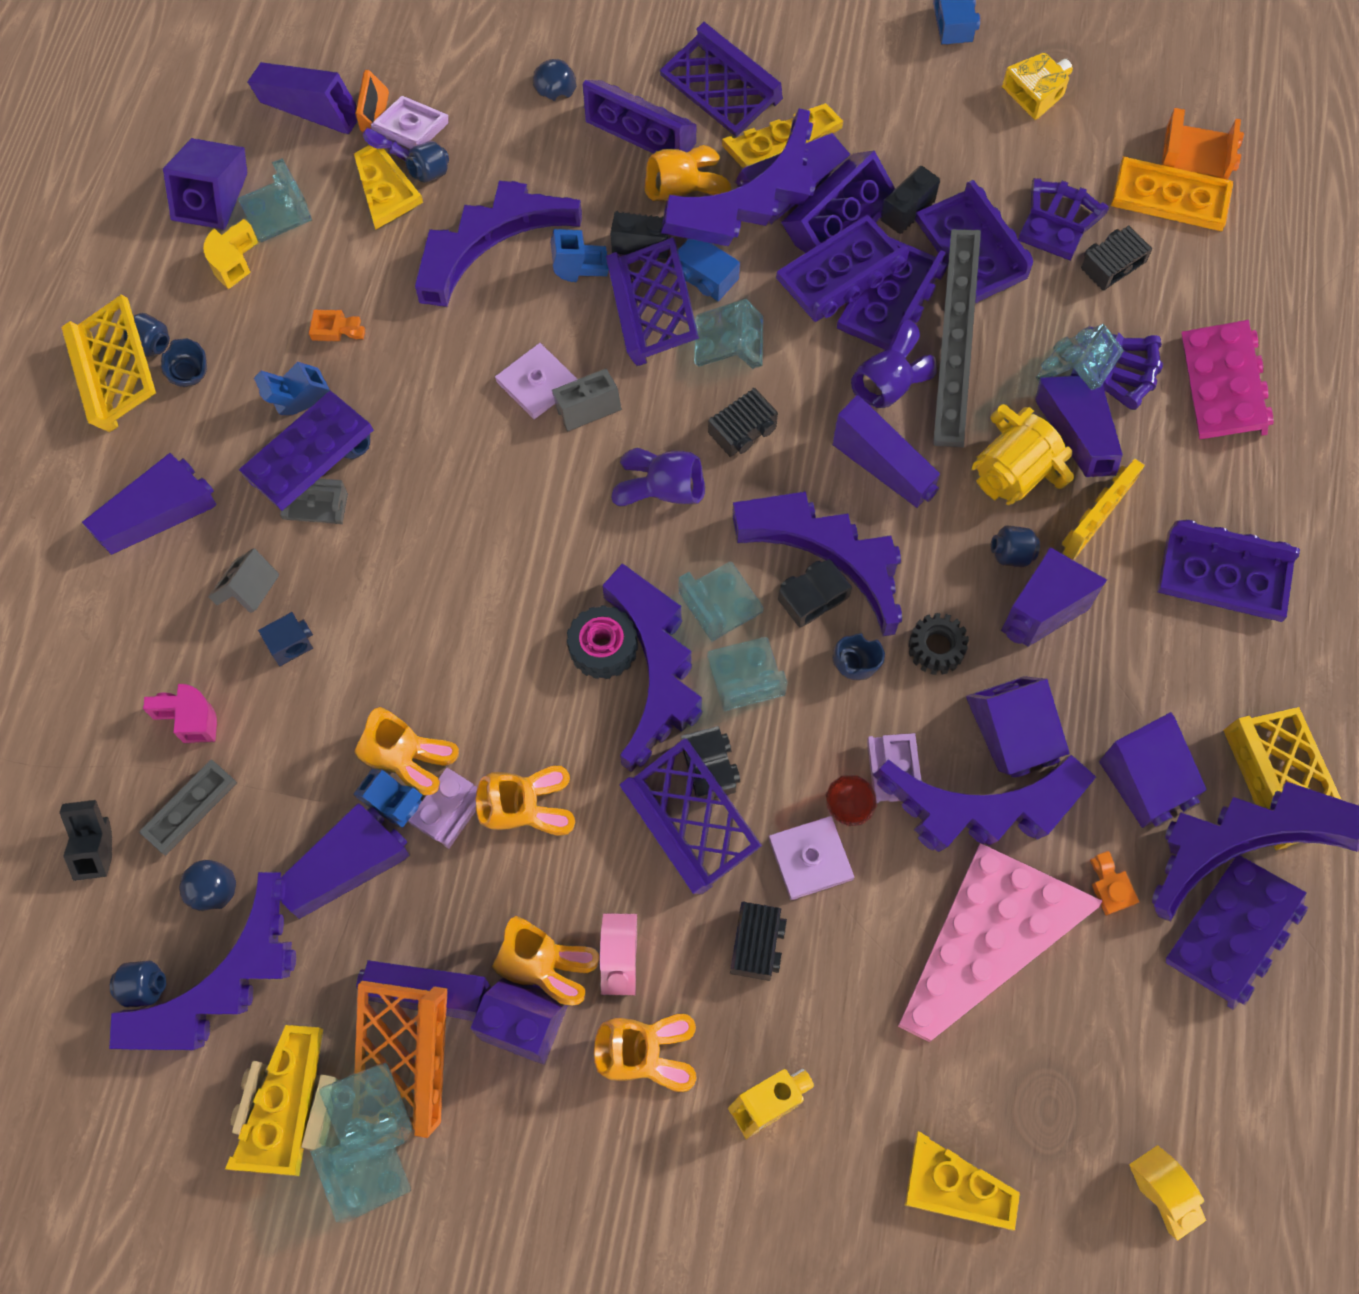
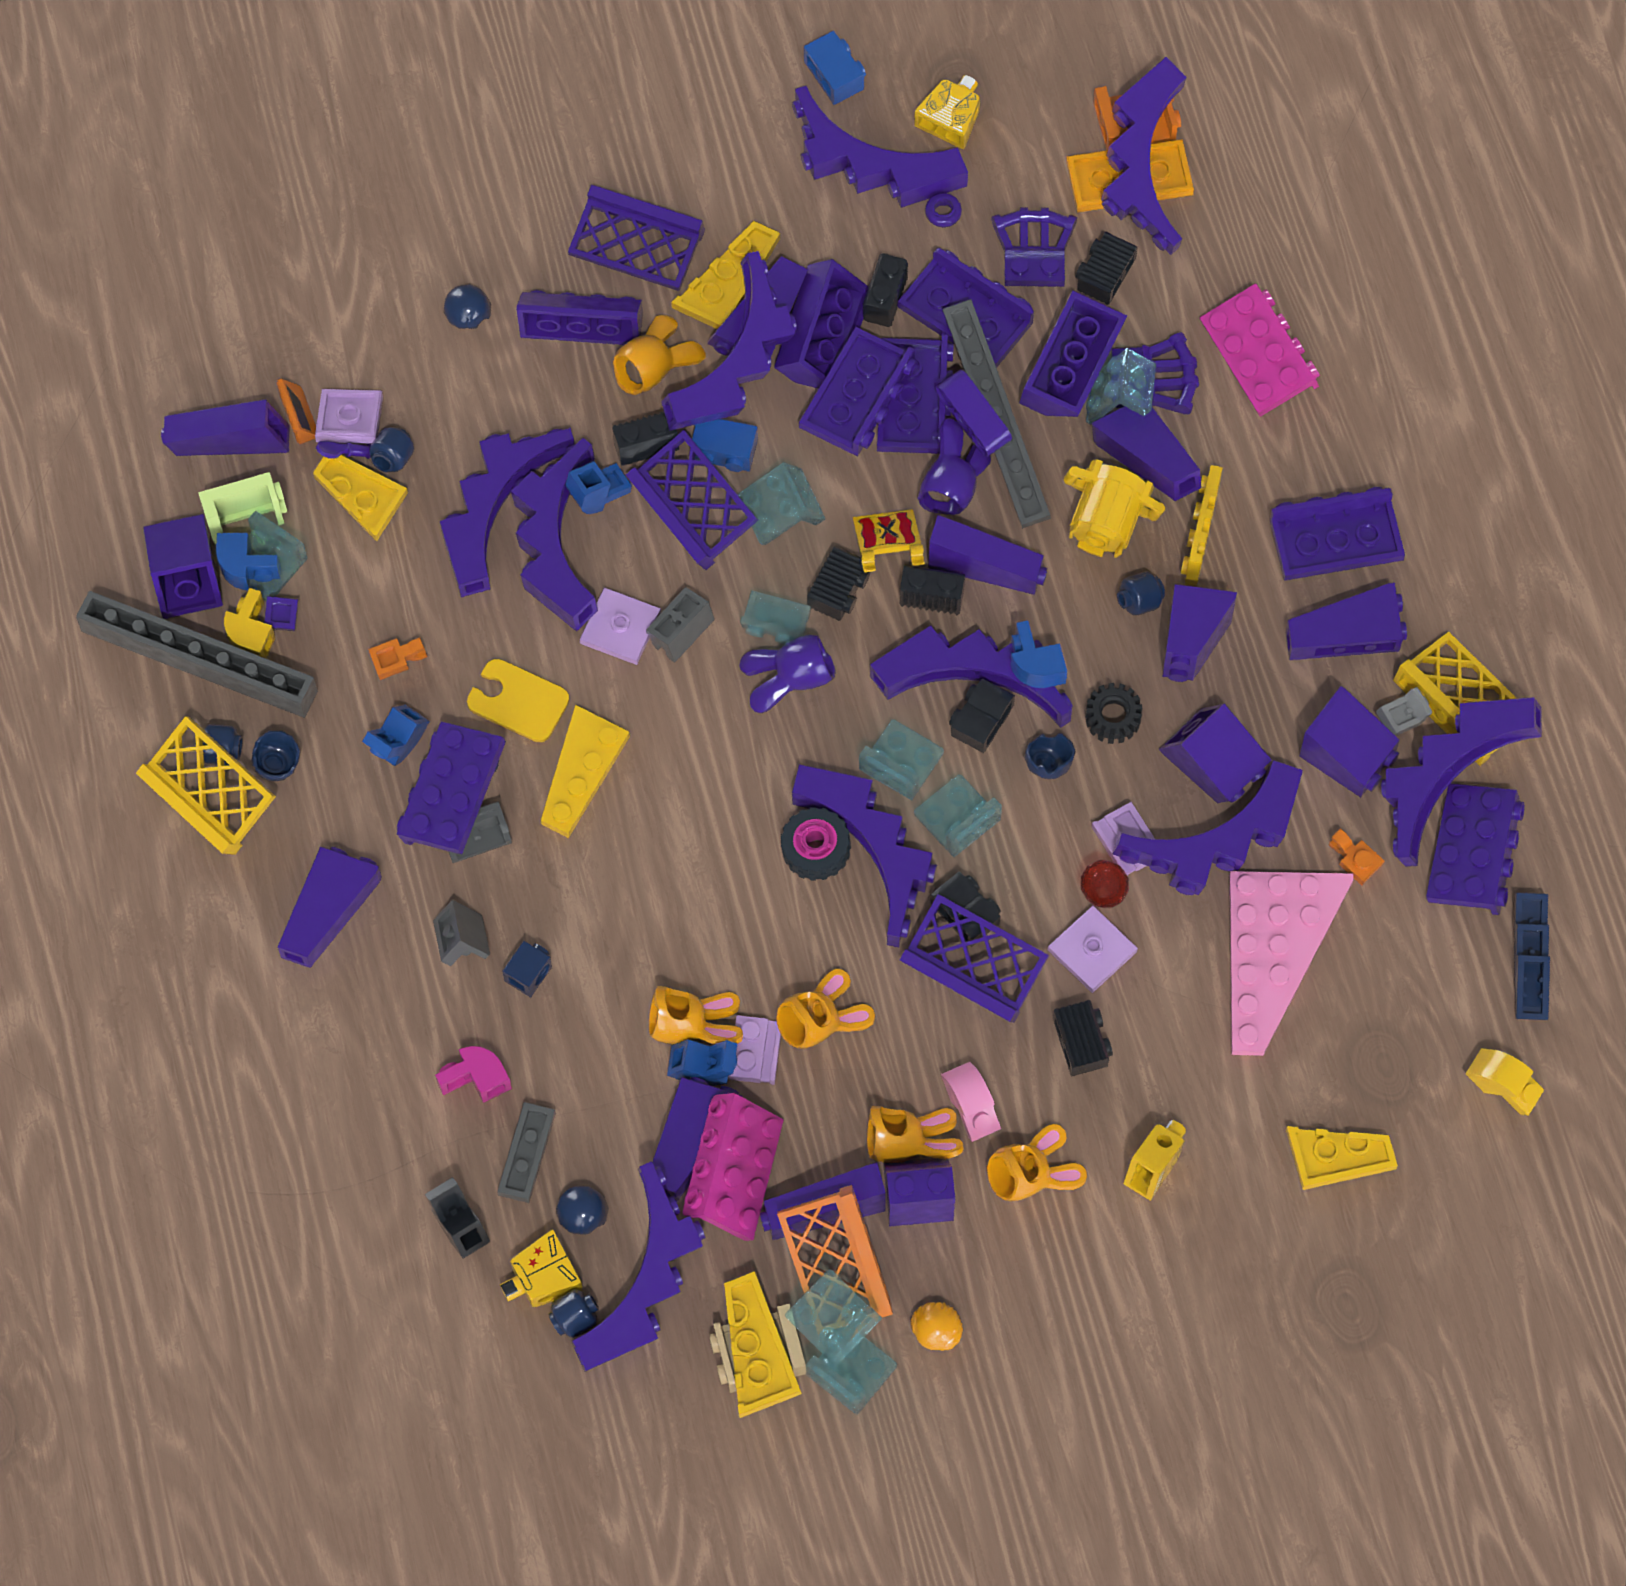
camera: 25 degrees left, 0 degrees up
(134, 929) = (541, 1272): none -> yellow torso
(173, 255) = (197, 654): none -> dark grey brick
(250, 196) = (239, 565): none -> blue brick
(262, 144) = (241, 500): none -> yellowish green panel
(262, 252) = (281, 613): none -> dark purple plate
(359, 911) = (733, 1165): none -> dark pink bracket
(422, 412) = (525, 704): none -> yellow piece
(435, 486) = (583, 764): none -> yellow wing
(469, 1169) = (937, 1326): none -> light orange hair
(510, 278) = (544, 502): none -> dark purple arch
(672, 427) = (775, 617): none -> clear light blue bracket
(808, 399) = (888, 534): none -> yellow flag
(824, 462) = (932, 589): none -> black brick
(883, 567) = (1036, 666): none -> blue brick
(935, 324) = (973, 413): none -> dark purple beam
(975, 117) = (908, 175): none -> dark purple arch
(998, 151) = (943, 199): none -> dark purple piece
(1048, 315) = (1072, 357): none -> dark purple slope
(1203, 140) = (1130, 153): none -> dark purple arch
(1203, 661) = (1349, 627): none -> dark purple slope
(1223, 765) = (1405, 712): none -> light grey bracket
(1250, 1071) = (1531, 956): none -> dark blue slope

